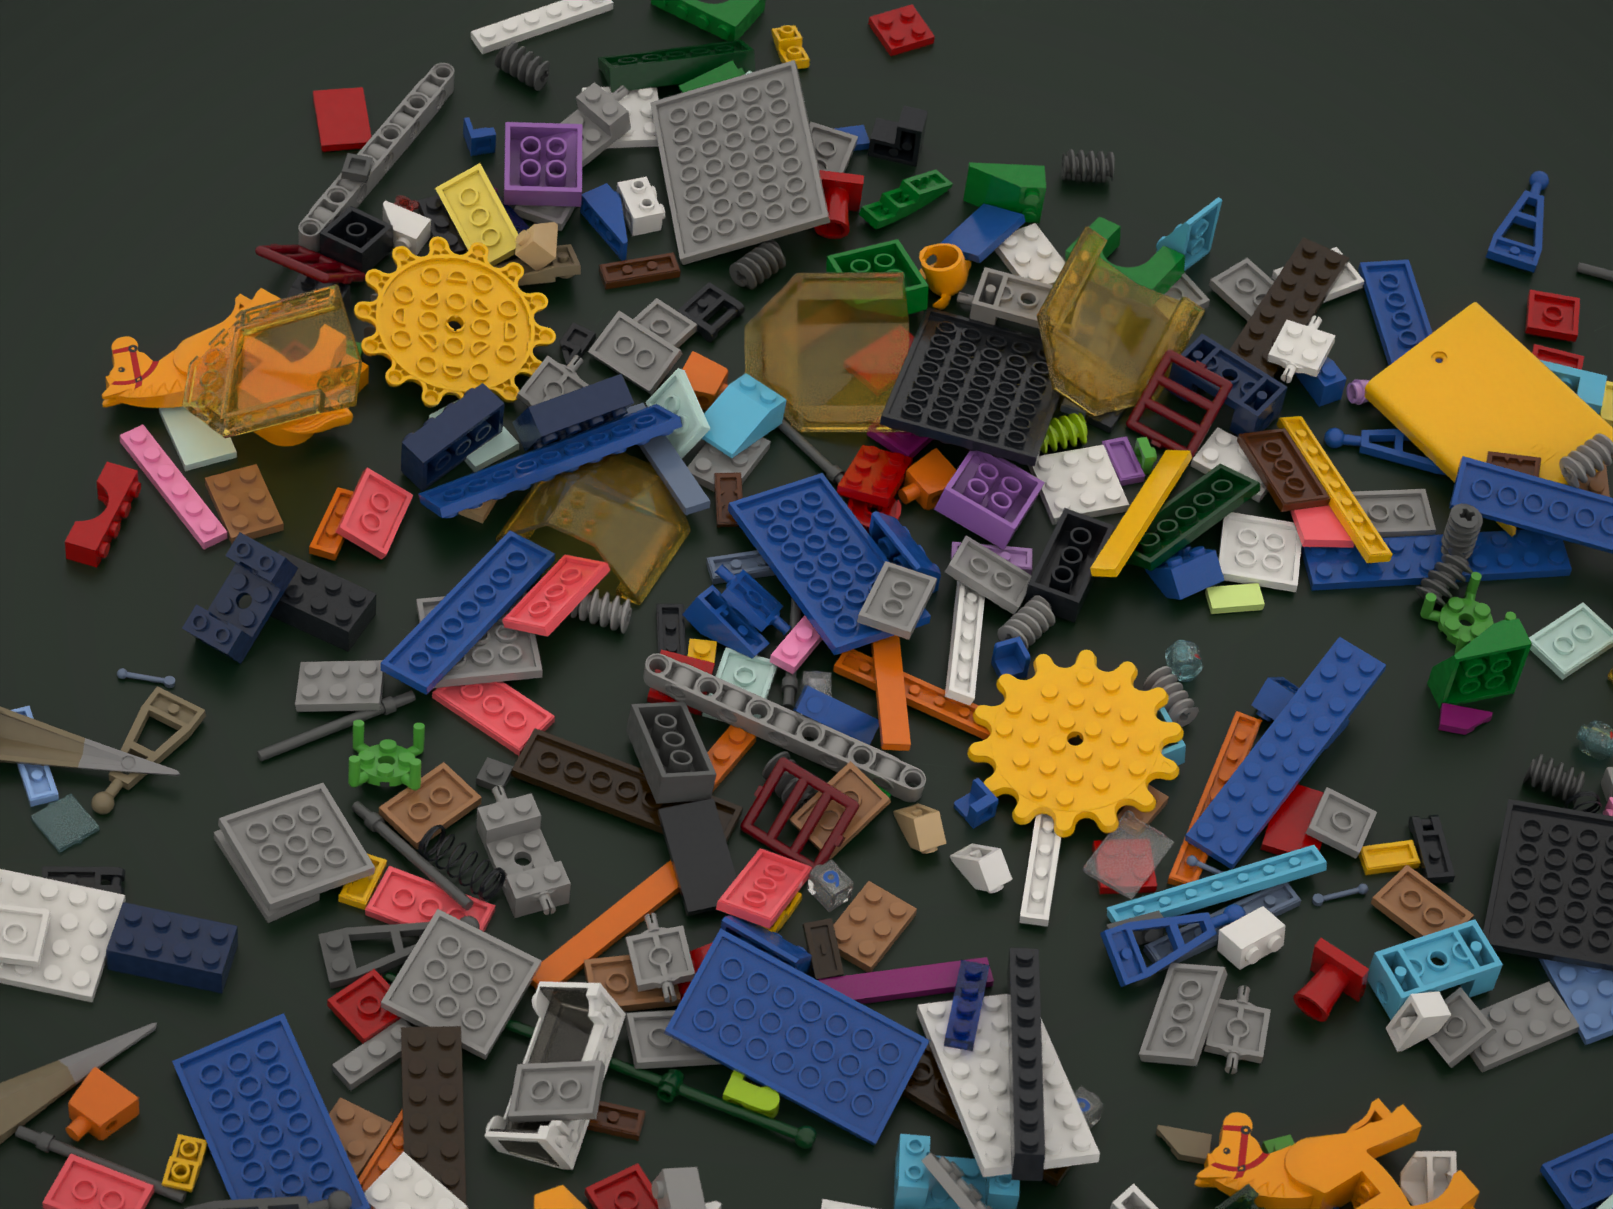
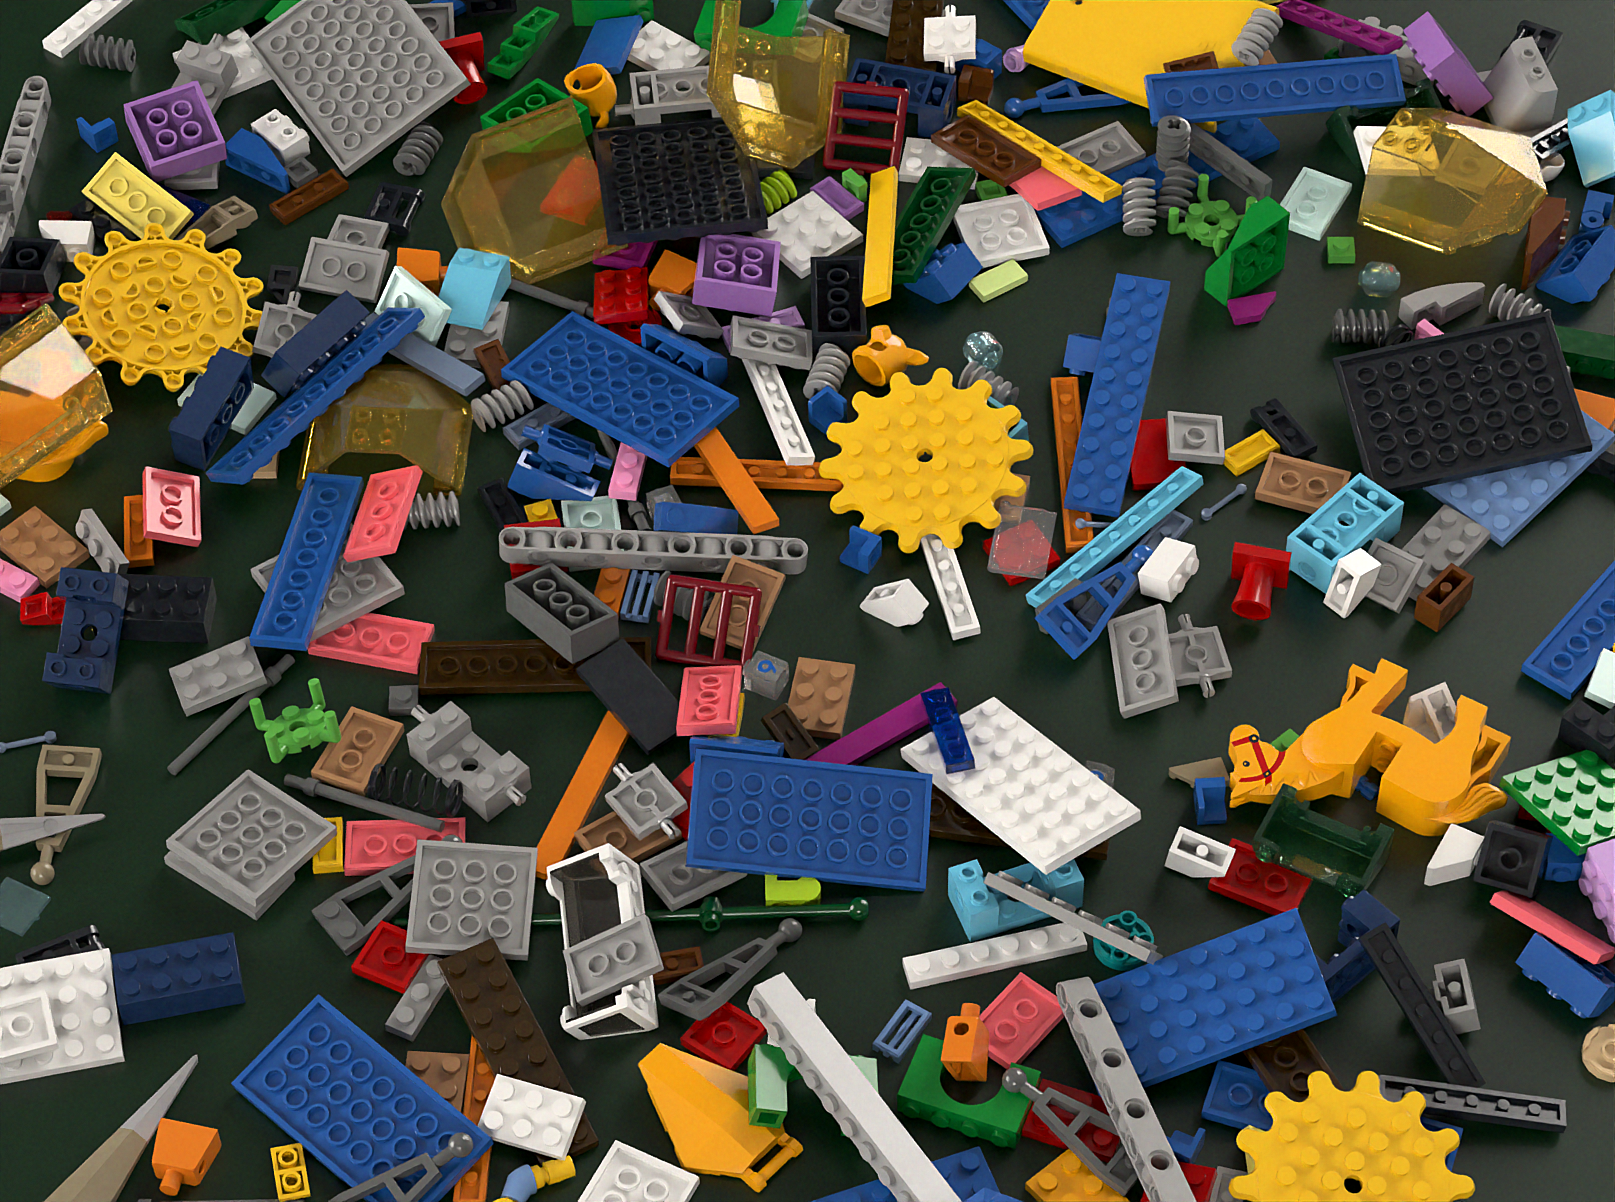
camera: 15 degrees left, 0 degrees up
(213, 562) = (41, 610): none -> red slope
(296, 523) = (100, 543): none -> light grey plate
(537, 245) = (206, 206): tan slope -> none
(615, 1162) = (698, 1003): none -> dark grey plate
(641, 244) = (300, 172): none -> dark grey plate
(715, 535) = (500, 403): none -> light grey piece
(746, 757) = (643, 579): none -> medium blue tile
(897, 600) = (702, 395): light grey plate -> none
(921, 827) = (822, 590): tan slope -> none
(924, 520) = (688, 317): none -> light grey plate
(1025, 1065) = (1033, 759): black brick -> none
(1088, 629) = (884, 356): none -> light orange piece
(1180, 1171) = (1209, 800): none -> blue panel
(1268, 509) = (989, 190): none -> bright green plate
(1307, 401) = (975, 84): none -> reddish brown panel
(1399, 579) = (1137, 206): none -> light grey piece
(1499, 1070) = (1444, 597): none -> reddish brown brick
(1507, 571) = (1229, 163): none -> dark grey plate
(1577, 697) = (1340, 250): none -> bright green plate

